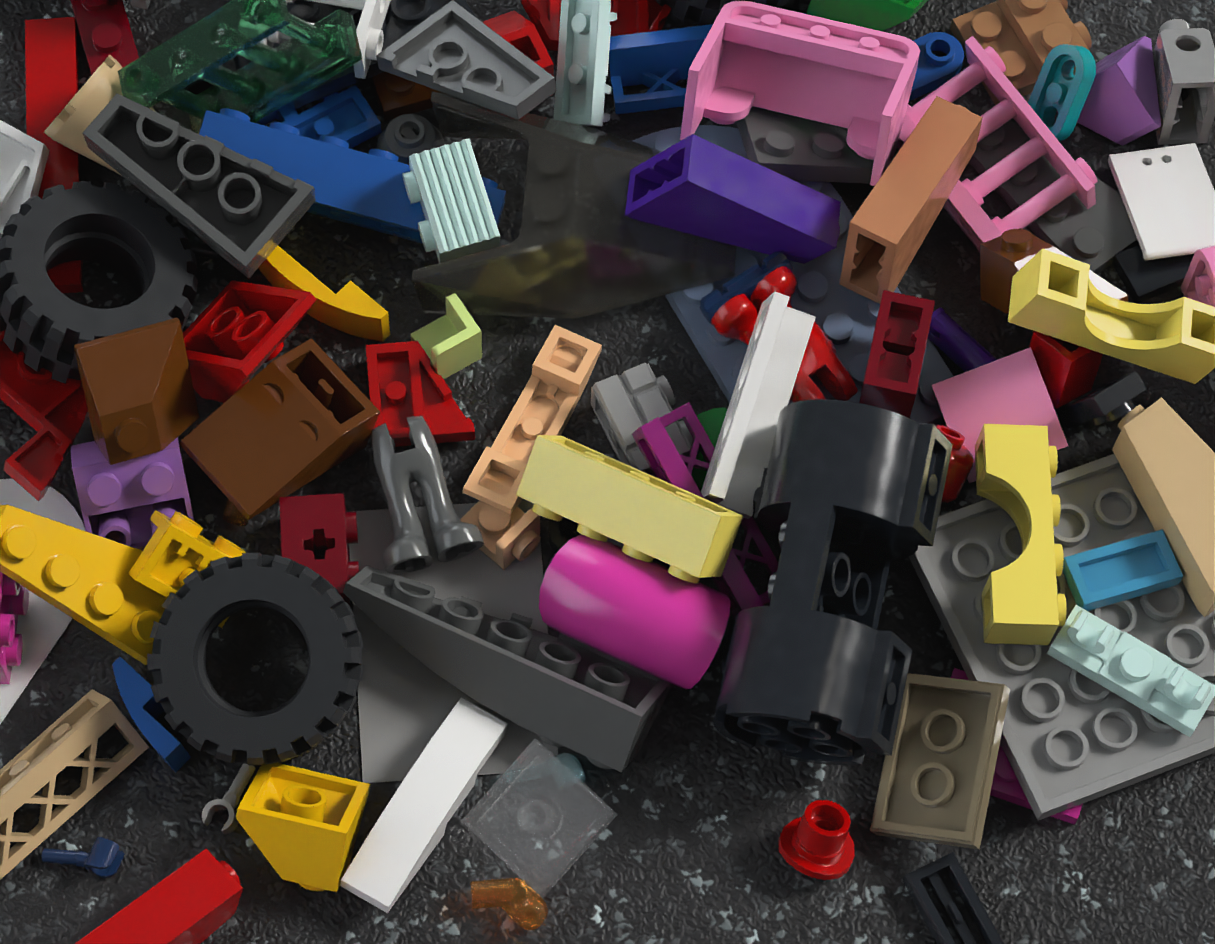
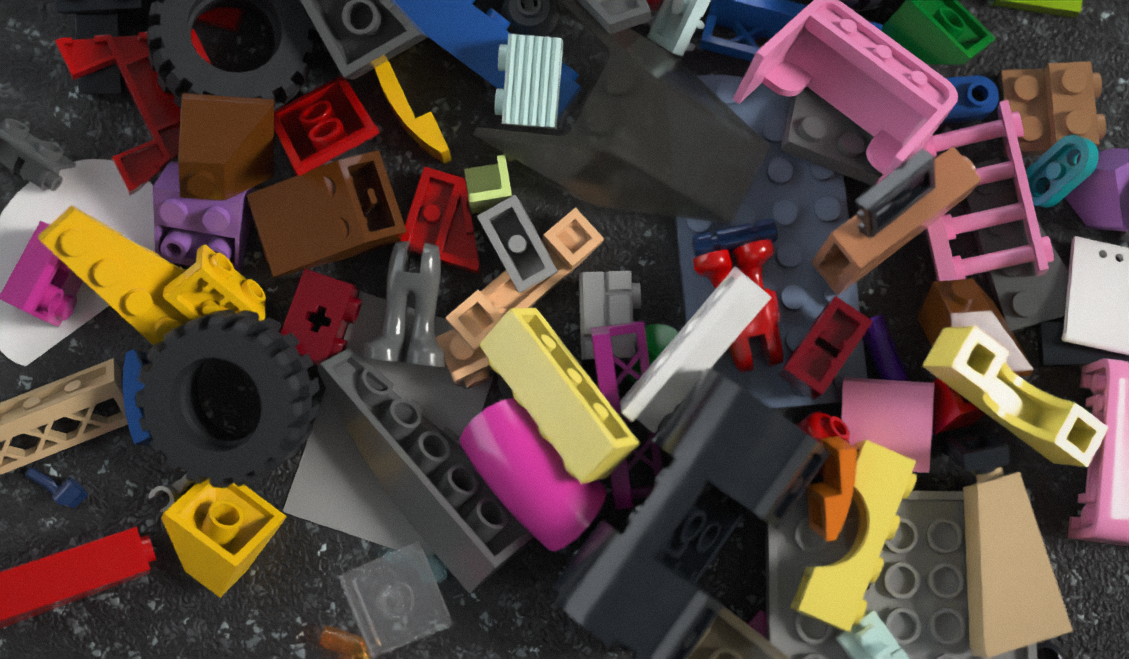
camera: 25 degrees right, 15 degrees up
(423, 805) = (314, 554): white slope -> none
(507, 380) = (517, 243): none -> light grey slope
(732, 201) = (749, 170): dark purple slope -> none
(900, 154) = (896, 193): none -> black tile
(977, 507) = (831, 499): none -> orange slope
(1121, 571) = (923, 594): dark azure tile -> none

